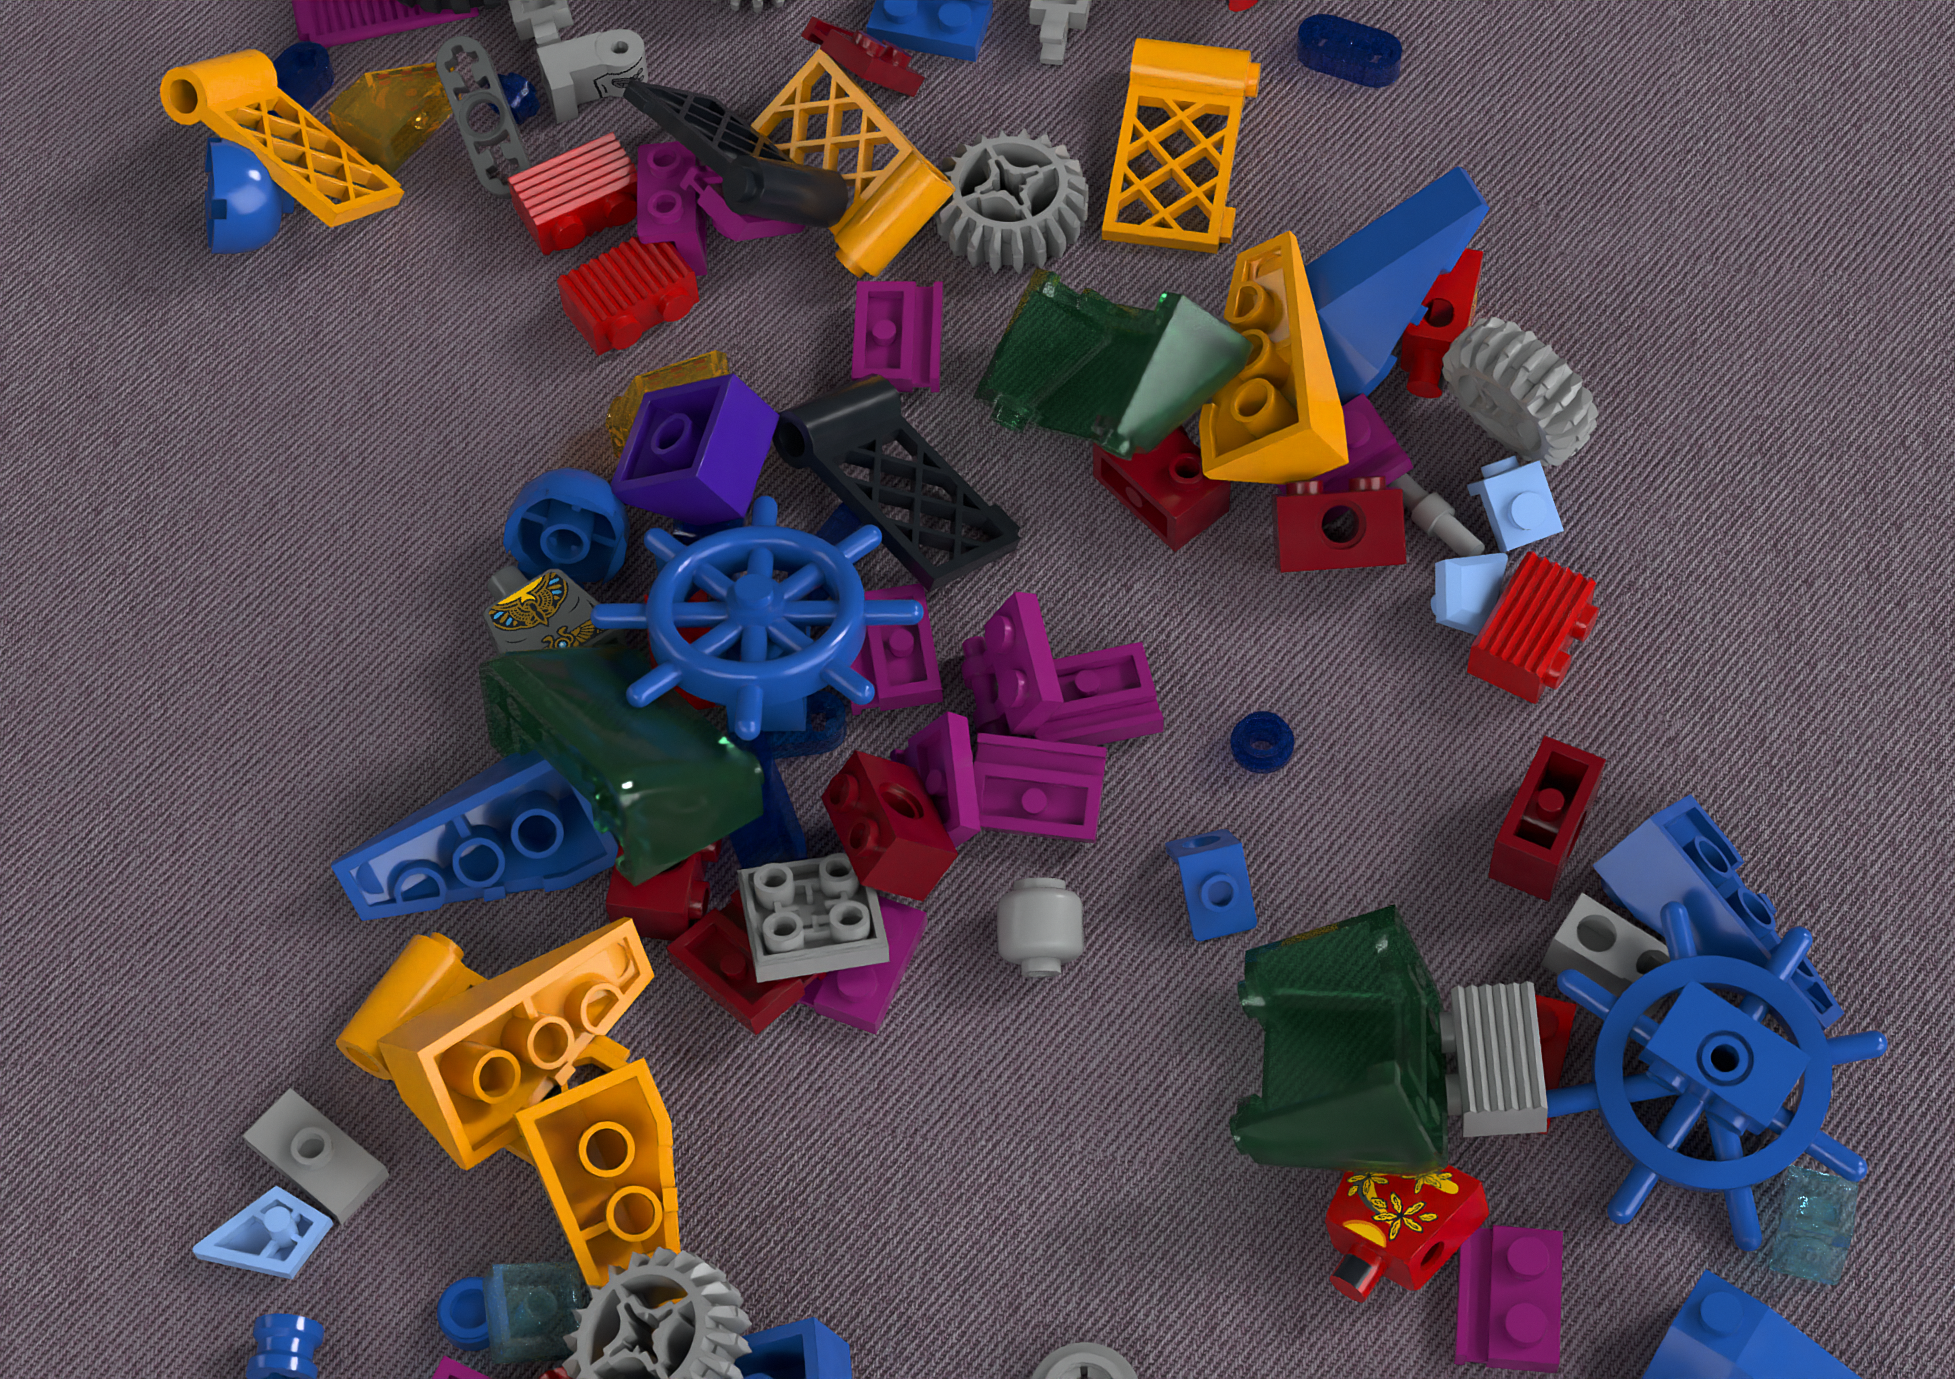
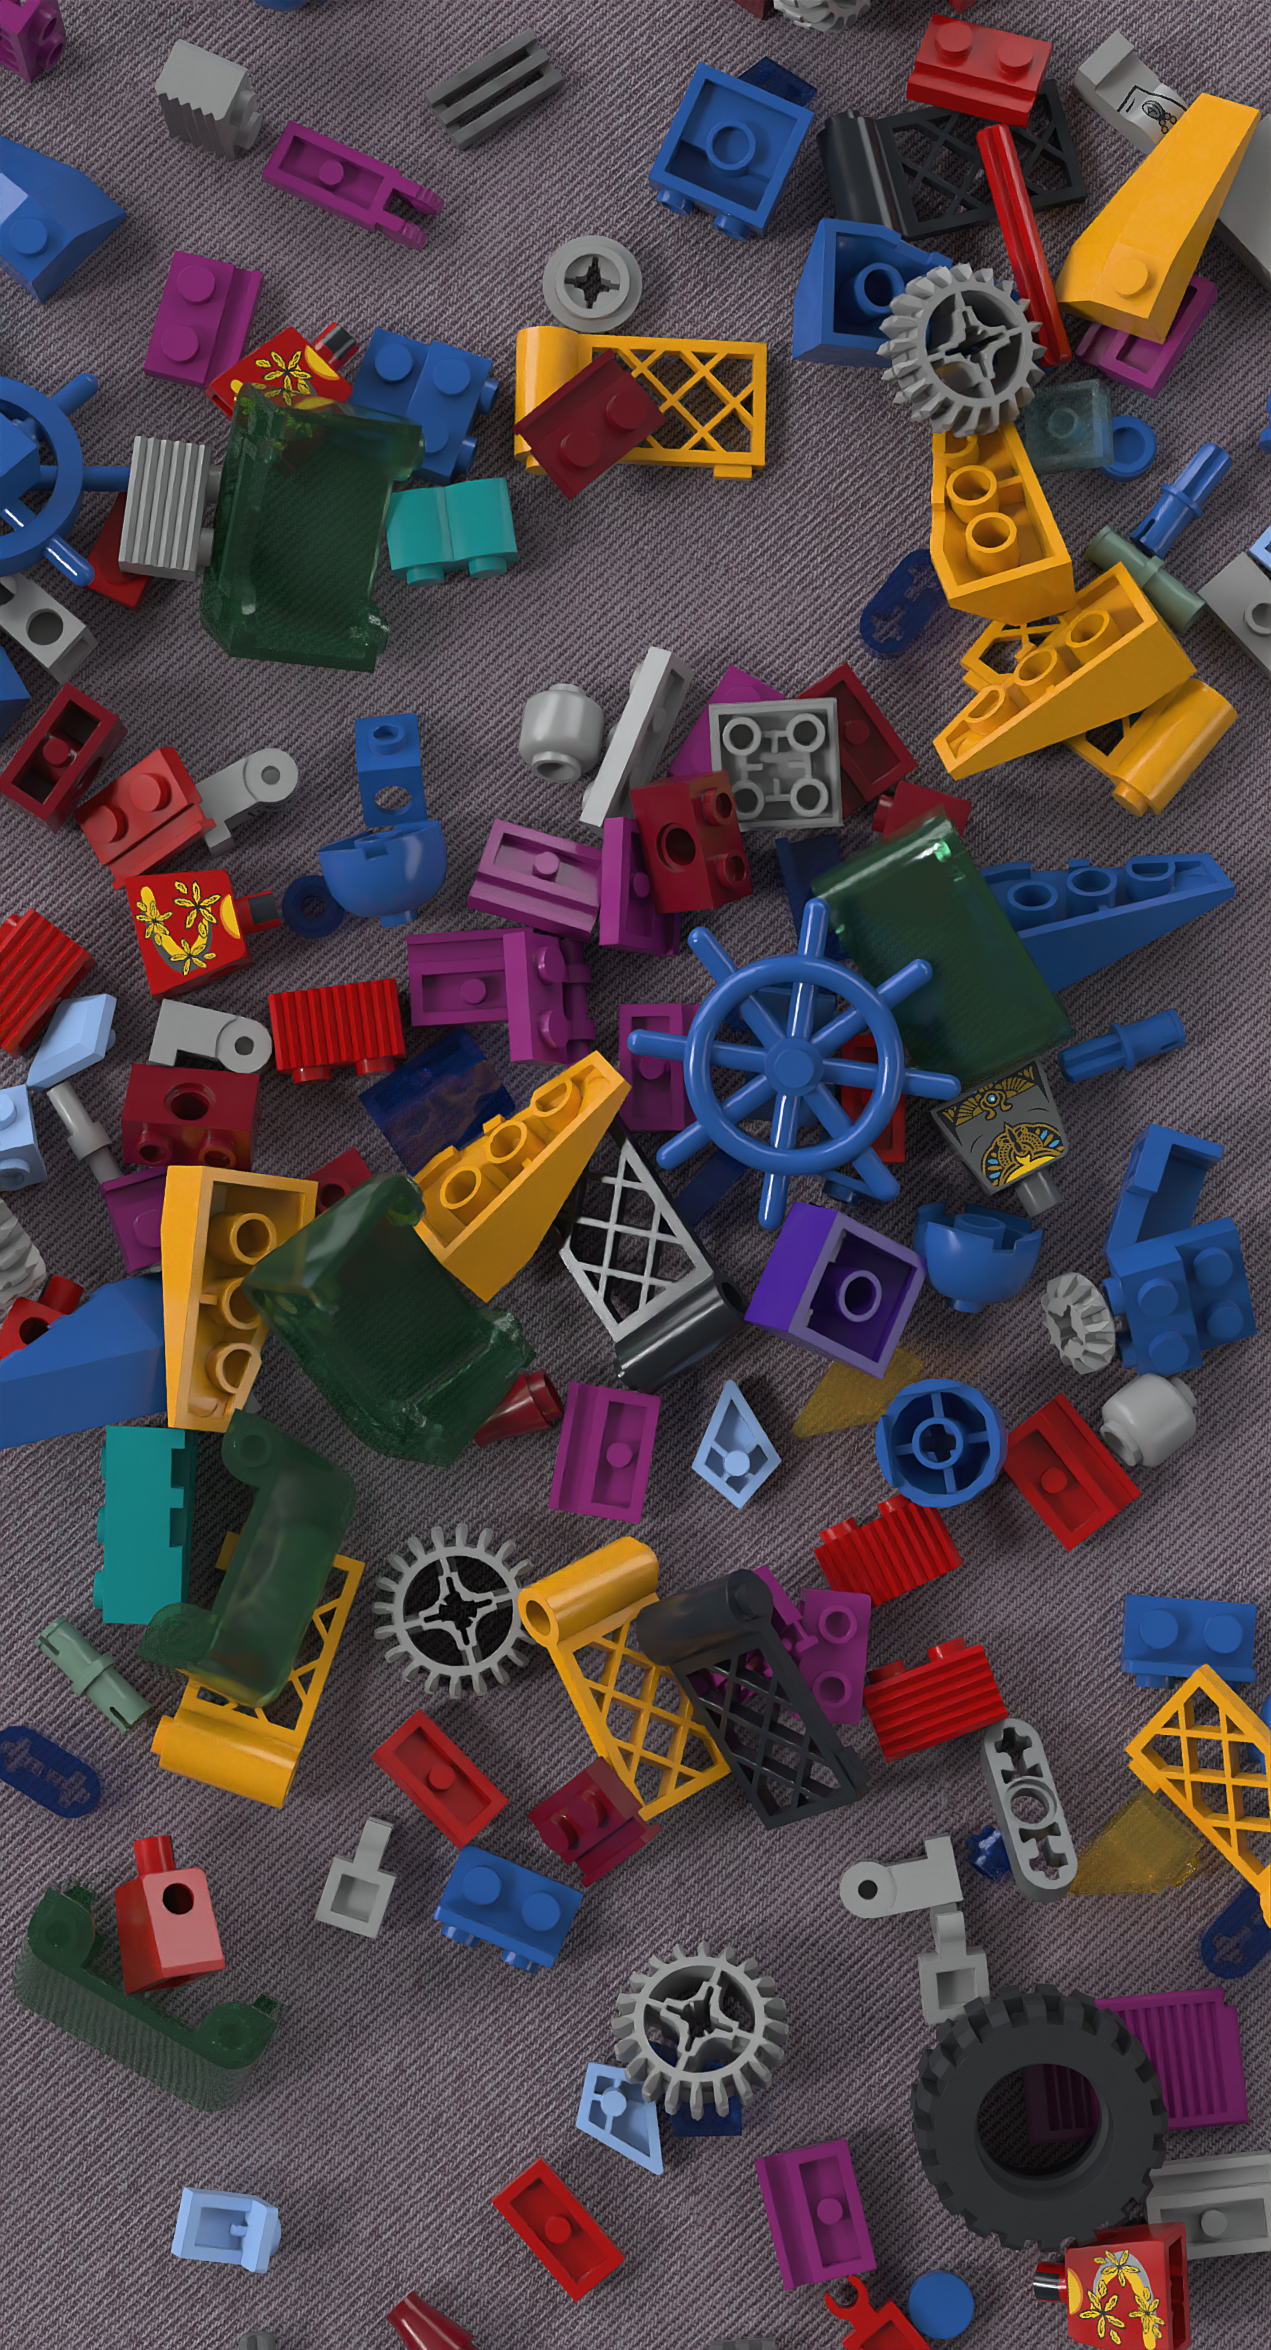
camera: 175 degrees left, 25 degrees up
(350, 269) = (1180, 1635): none -> blue bracket
(388, 507) = (1179, 1297): none -> blue plate
(394, 424) = (1149, 1419): none -> light grey head
(399, 610) = (1159, 1186): none -> blue panel
(405, 1259) = (1181, 501): none -> blue axle
(434, 732) = (1122, 1047): none -> blue axle
(440, 1174) = (1166, 593): none -> sand green pin
(465, 482) = (1079, 1322): none -> light grey gear
(472, 379) = (1066, 1473): none -> red plate
(582, 357) = (941, 1443): none -> blue cylinder
(711, 1121) = (893, 595): none -> clear blue beam
(778, 358) = (735, 1449): none -> light blue piece
(962, 927) = (638, 738): none -> light grey plate
(968, 359) = (525, 1409): none -> dark red cone
(1004, 83) = (439, 1779): none -> red plate
(1024, 518) = (507, 1187): none -> light orange wedge
(1060, 1217) = (589, 424): none -> dark red plate
(1103, 1265) = (554, 355): none -> light orange piece
(1111, 592) = (437, 1100): none -> clear blue panel
(1184, 232) = (274, 1578): none -> clear green windscreen
(1185, 1108) = (450, 531): none -> teal brick
(1197, 772) = (387, 870): none -> blue cylinder
(1214, 632) = (338, 1030): none -> red brick
(1252, 1238) = (436, 388): none -> blue plate
(1300, 192) = (145, 1521): none -> teal wedge
(1324, 116) = (93, 1675): none -> sand green pin
(1334, 608) = (210, 1037): none -> light grey leg
(1360, 827) = (245, 789): none -> light grey leg
(1377, 699) = (194, 927): none -> red torso
(1448, 780) = (144, 817): none -> red plate

